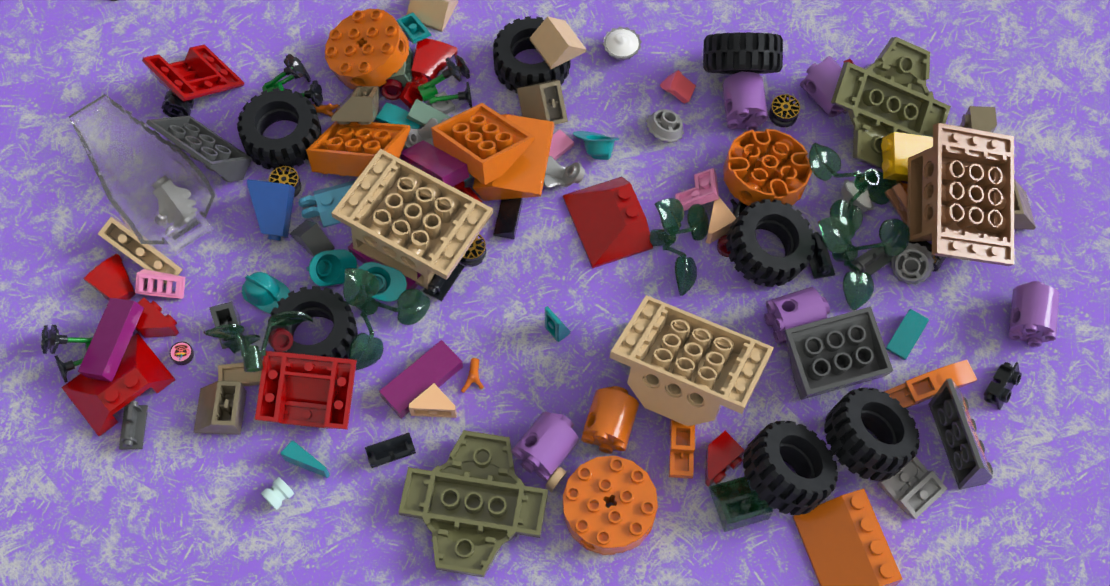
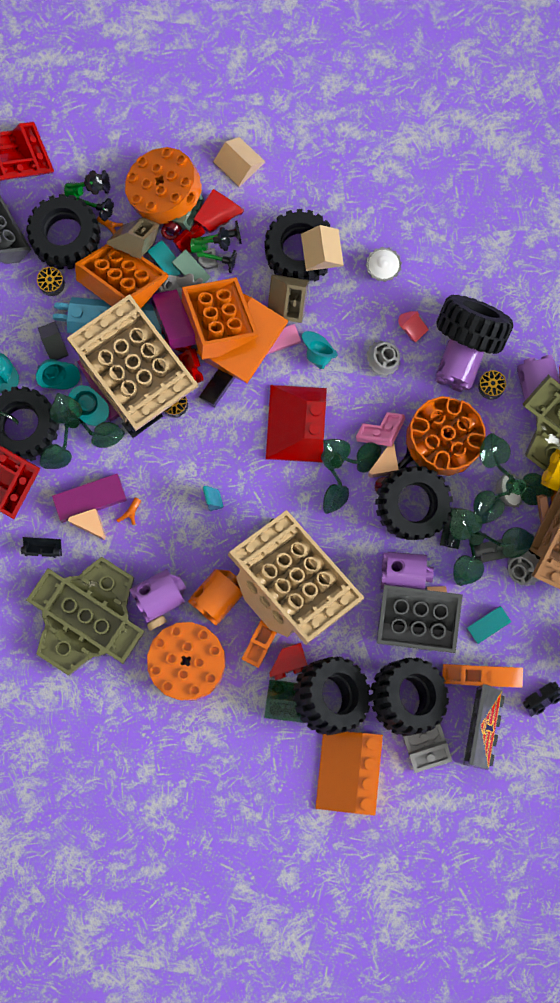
camera: 30 degrees right, 15 degrees up
(272, 207) = (30, 302): blue slope -> none
(413, 28) = (212, 178): teal slope -> none
(562, 176) = (275, 367): light grey plant -> none

